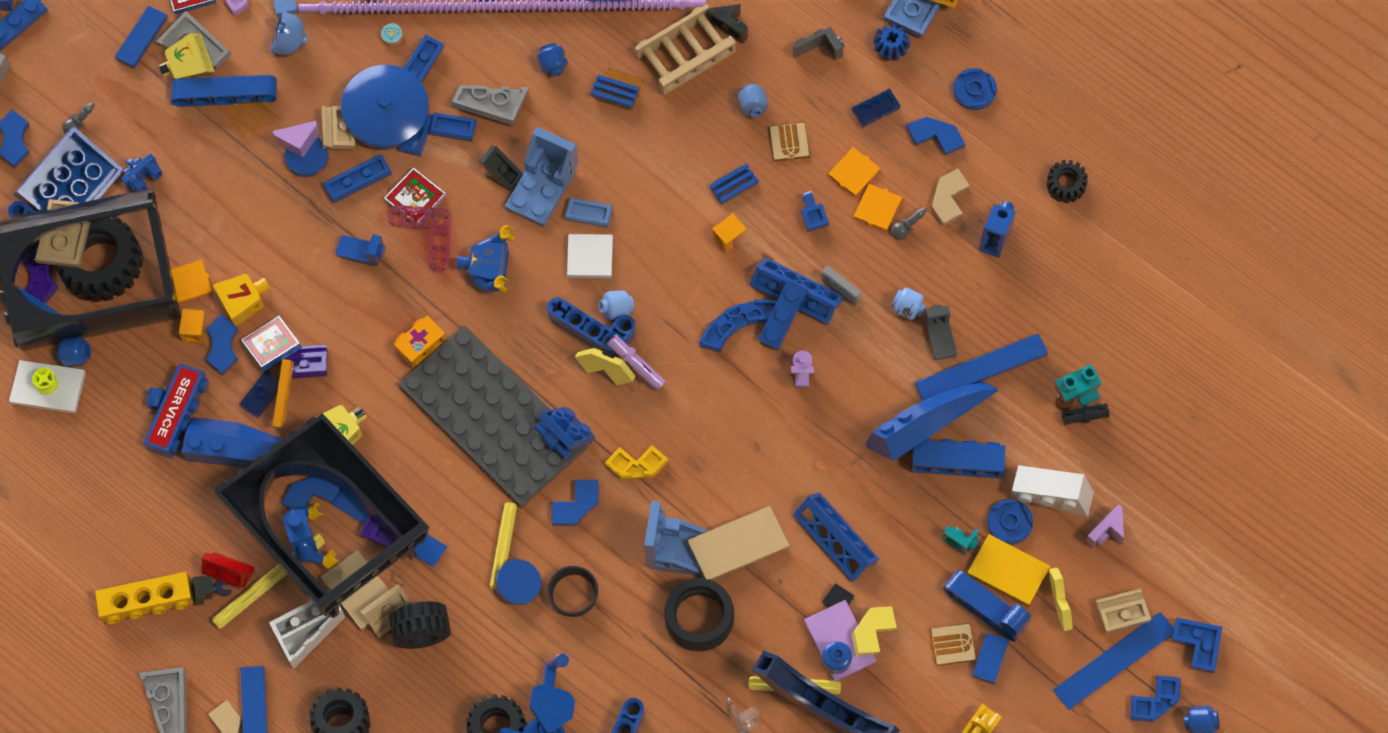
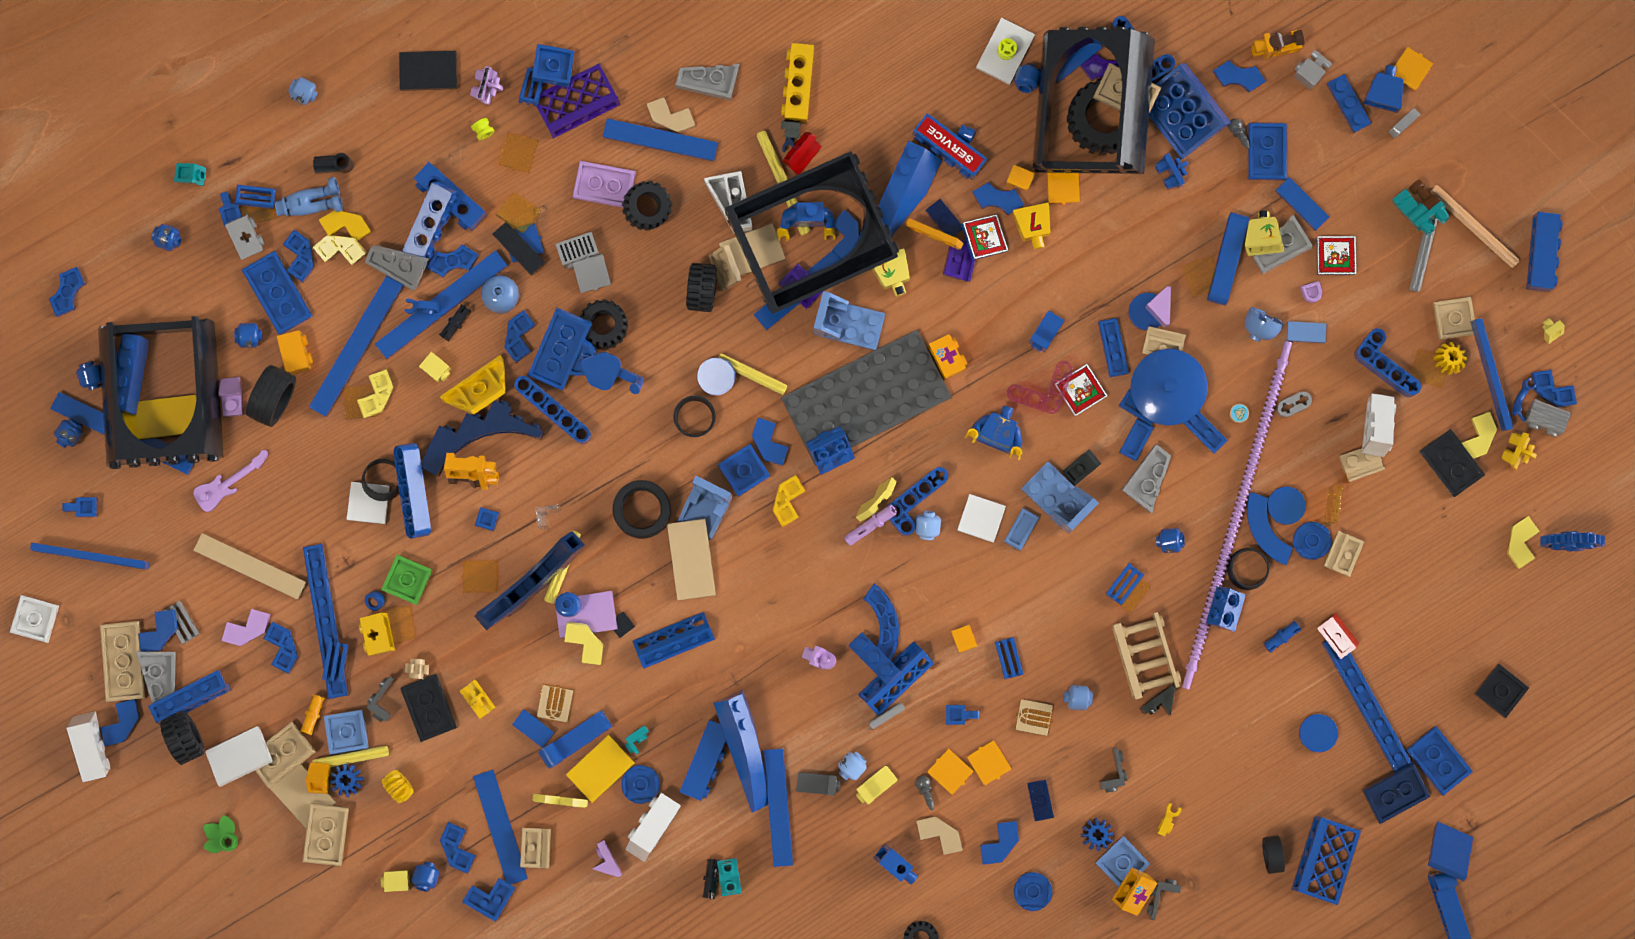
camera: 100 degrees right, 15 degrees up
(97, 84) = (1267, 151): none -> blue tile
(412, 457) = (848, 322): none -> medium blue bracket
(617, 519) = (744, 470): none -> blue plate
(921, 275) = (875, 785): none -> light yellow bracket

